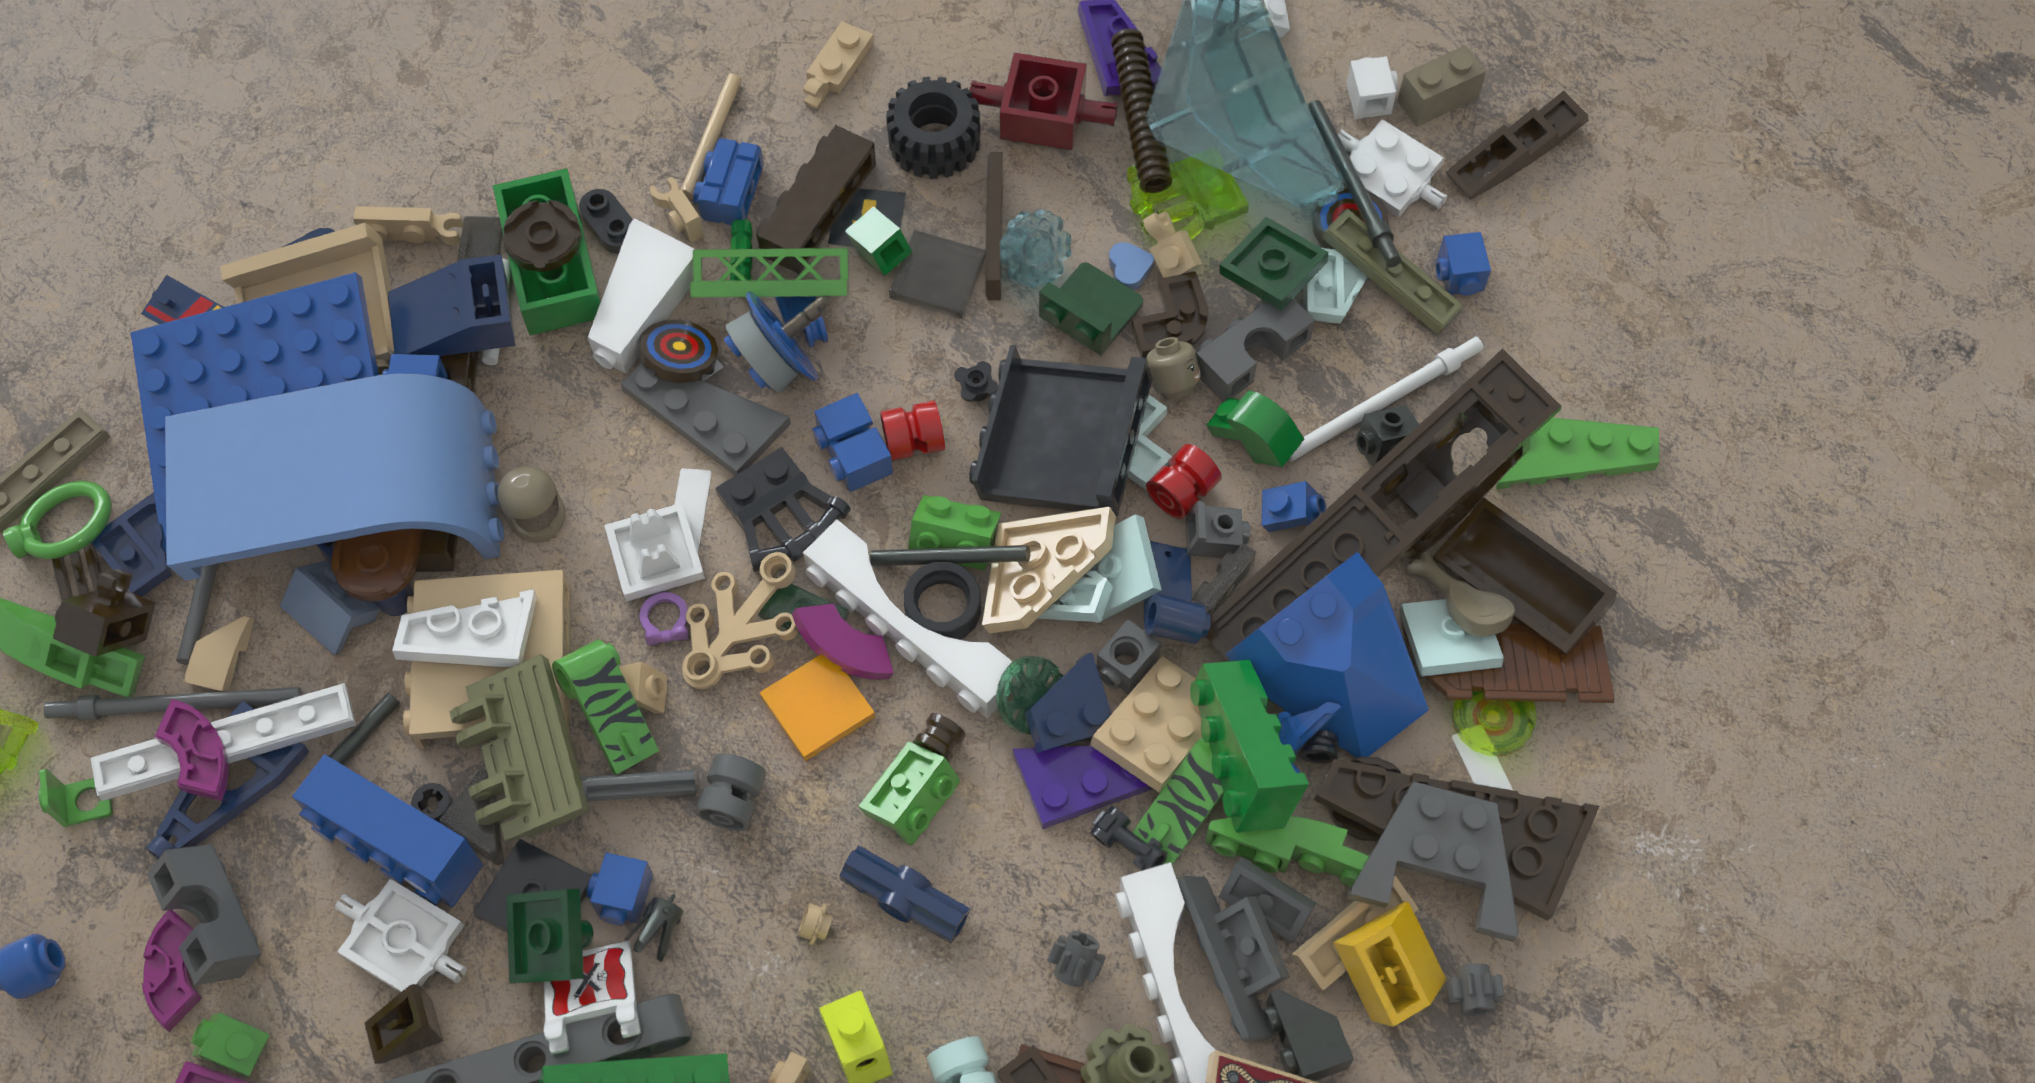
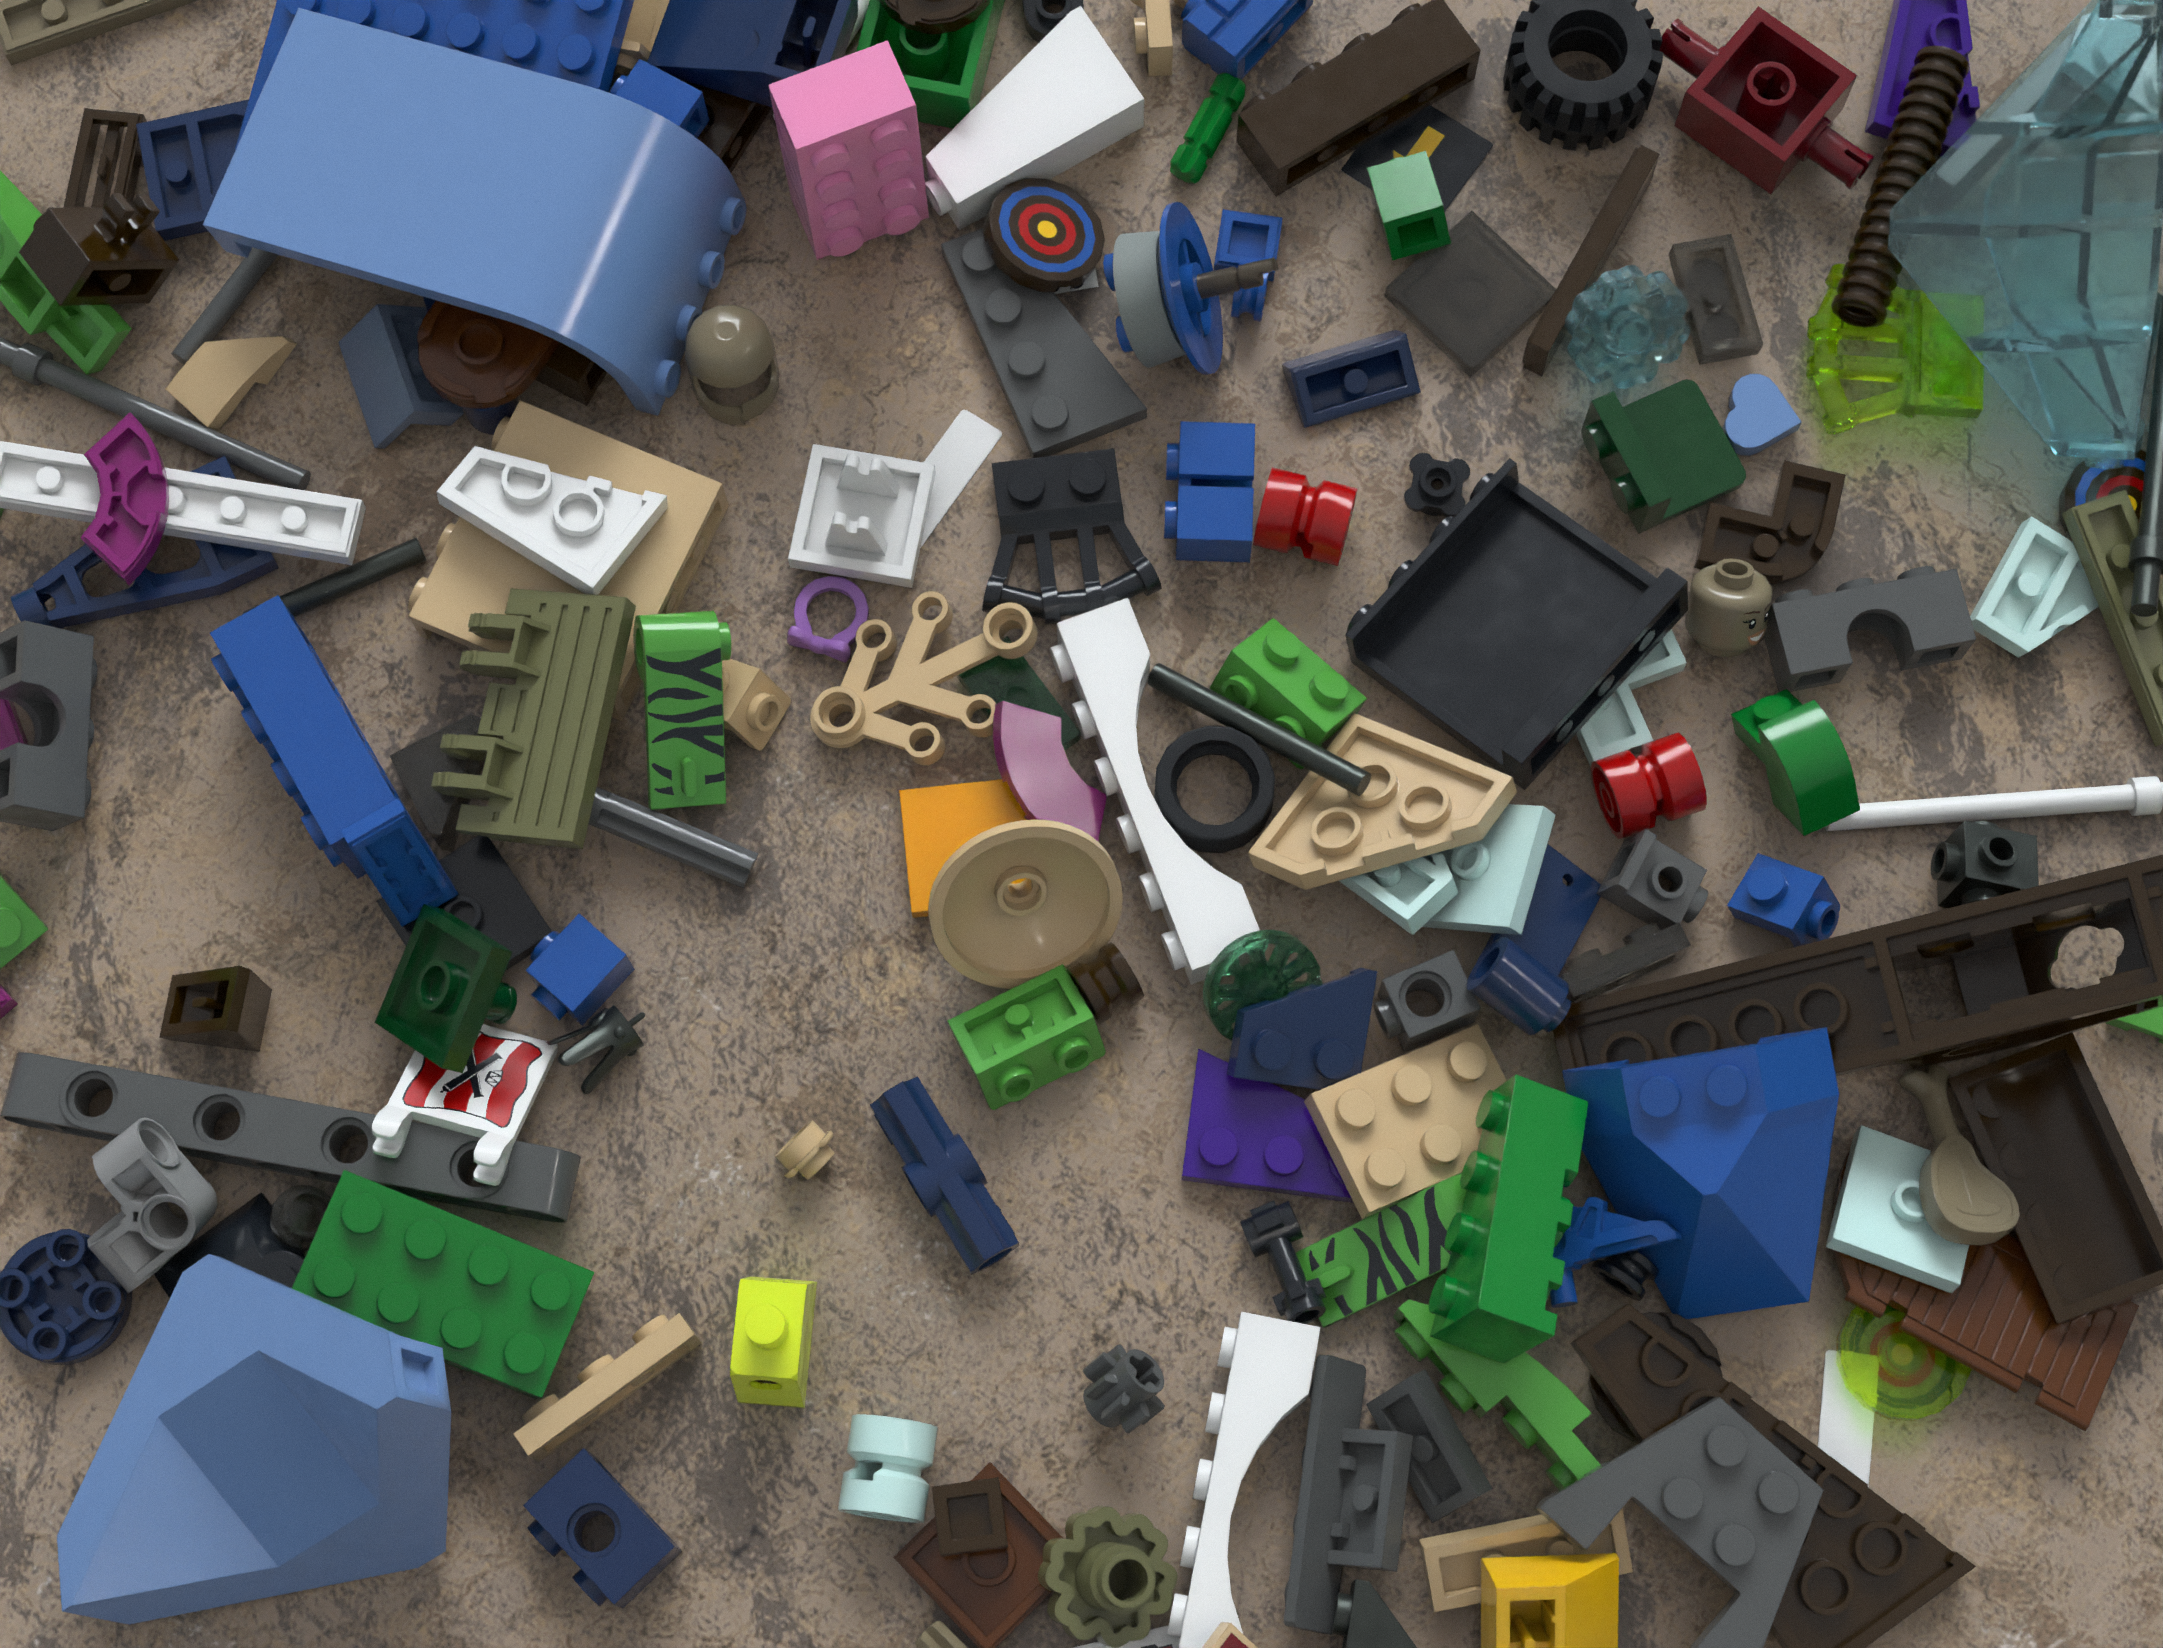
camera: 30 degrees right, 10 degrees up
(25, 538) = (60, 83): bright green piece -> none
(400, 937) = (268, 888): white plate -> none
(421, 797) = (386, 710): black bush -> none
(479, 874) = (399, 861): none -> blue plate
(545, 347) = (851, 150): none -> bright pink brick
(732, 787) = (801, 894): dark grey wheel -> none
(770, 288) = (1216, 204): bright green fence -> none
(889, 715) = (1021, 930): none -> tan dish
(896, 348) = (1352, 377): none -> dark blue slope
(1079, 216) = (1717, 299): none -> clear smoke plate
(1174, 250) = (1829, 429): tan plate -> none
(1273, 263) = (1962, 523): dark green tile -> none

